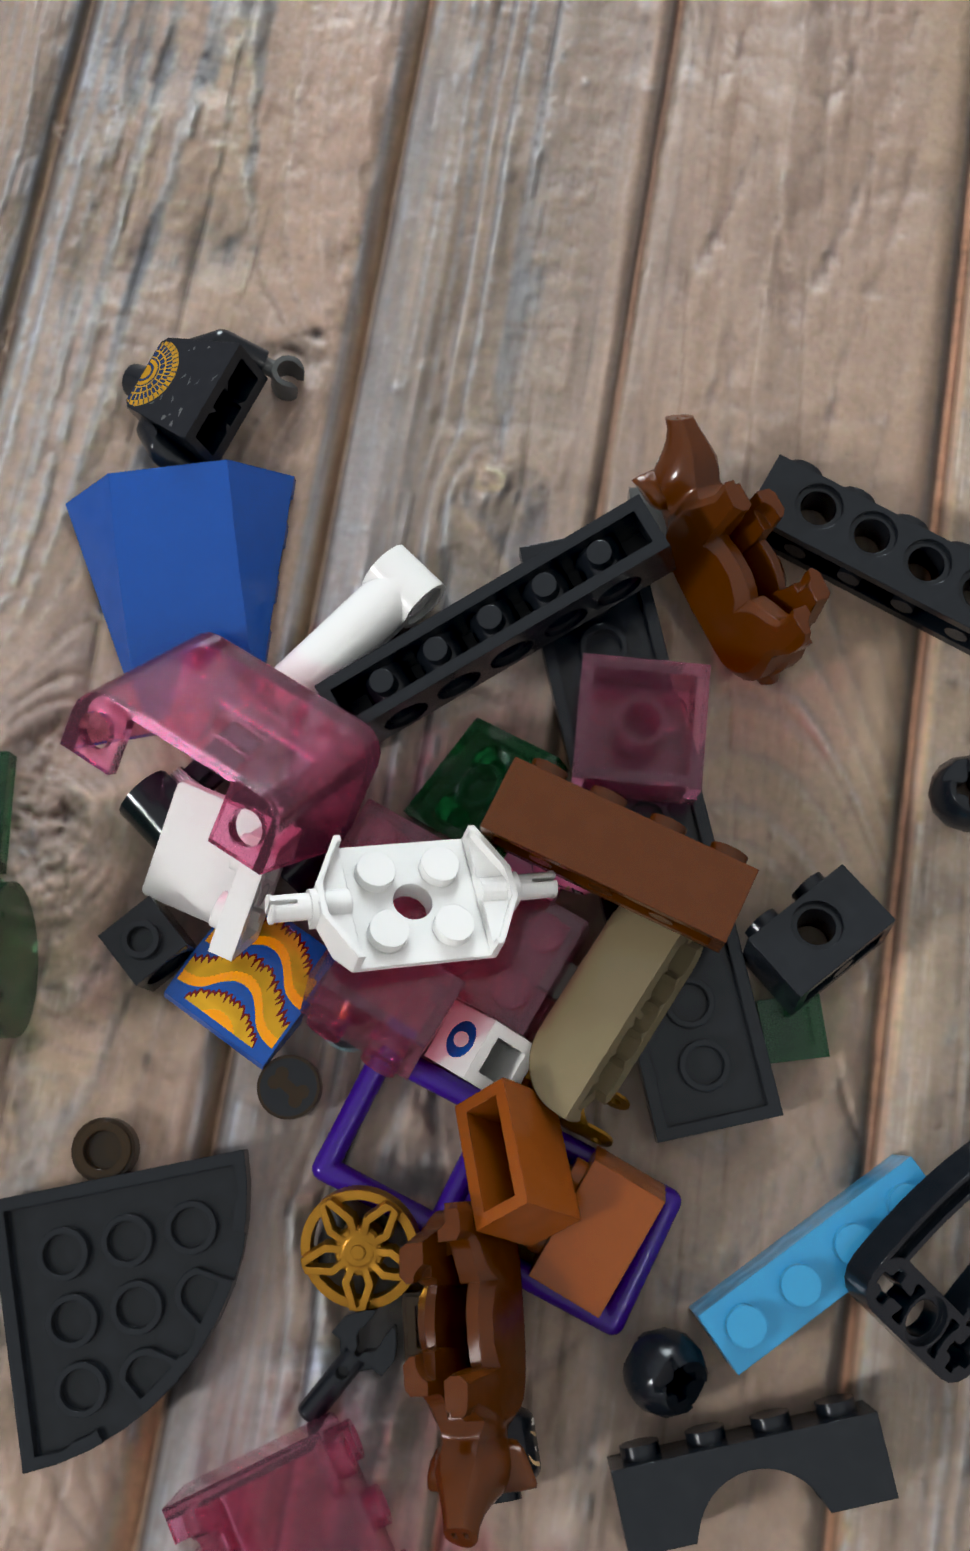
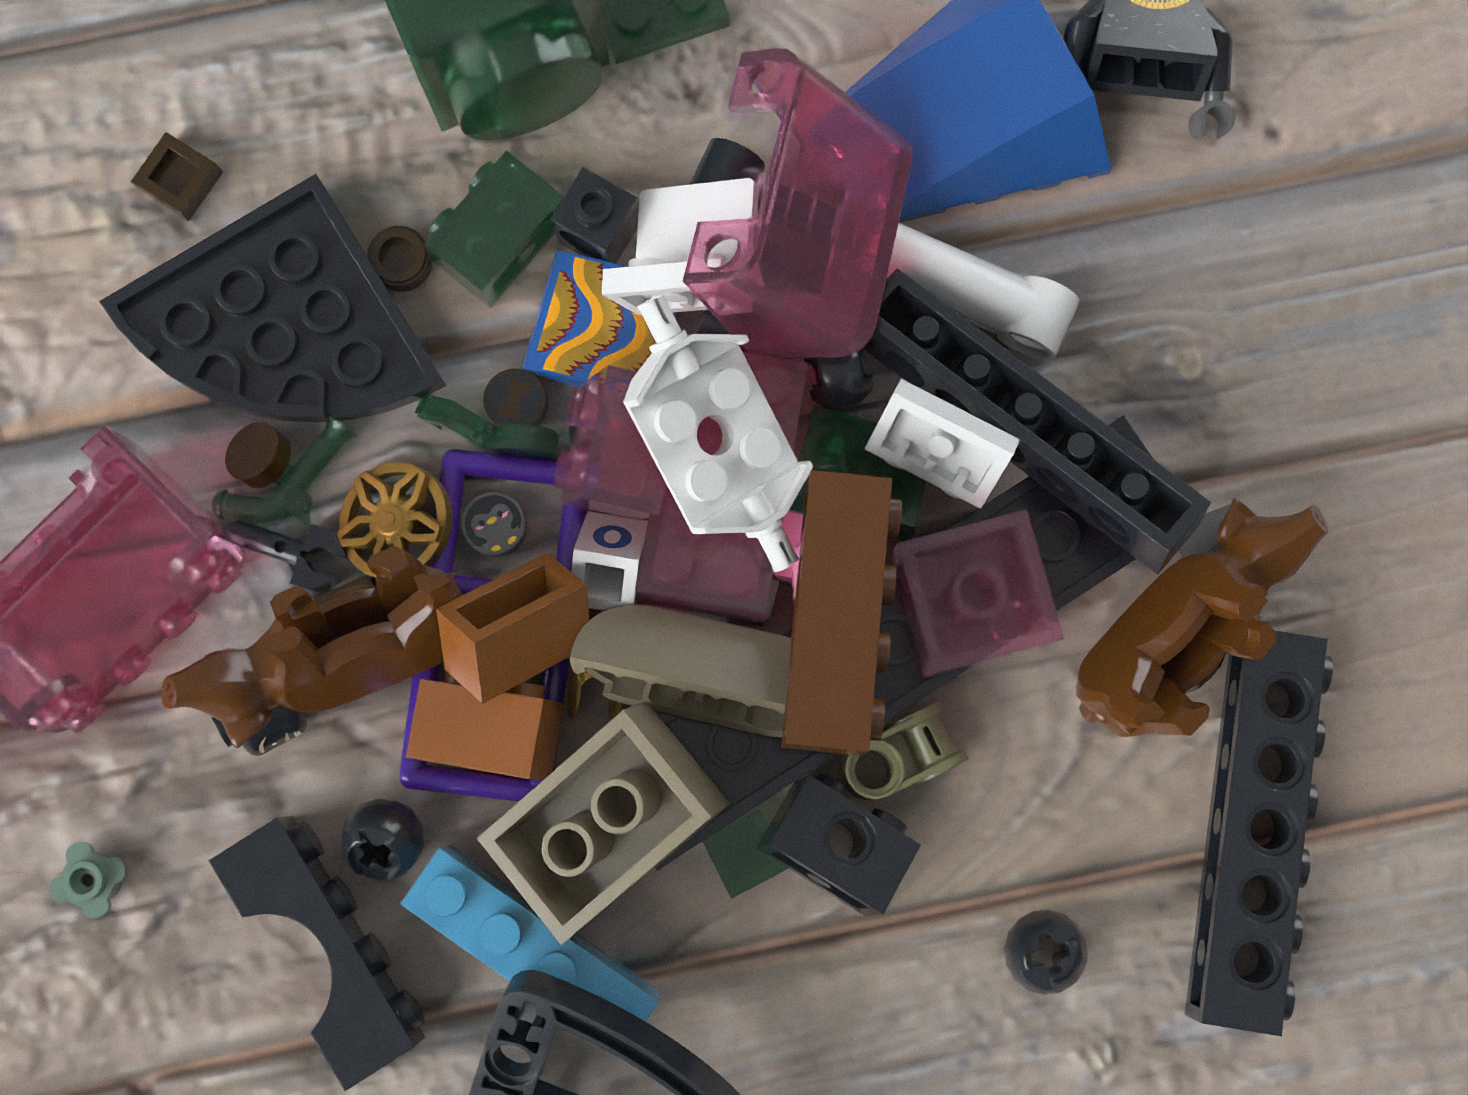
camera: 65 degrees right, 5 degrees up
(116, 1044) = (494, 228): none -> clear green brick
(242, 1363) = (258, 455): none -> dark brown tile
(281, 1339) = (291, 486): none -> clear green piece
(286, 1149) = (449, 414): none -> clear green tile
(334, 1089) = (526, 441): none -> clear green tile
(394, 780) = (840, 380): none -> black piece
(399, 1151) = (494, 524): none -> dark grey tile
(489, 708) = (941, 444): none -> white bracket
(729, 1146) = (602, 821): none -> dark tan brick
(759, 834) = (912, 751): none -> olive piece

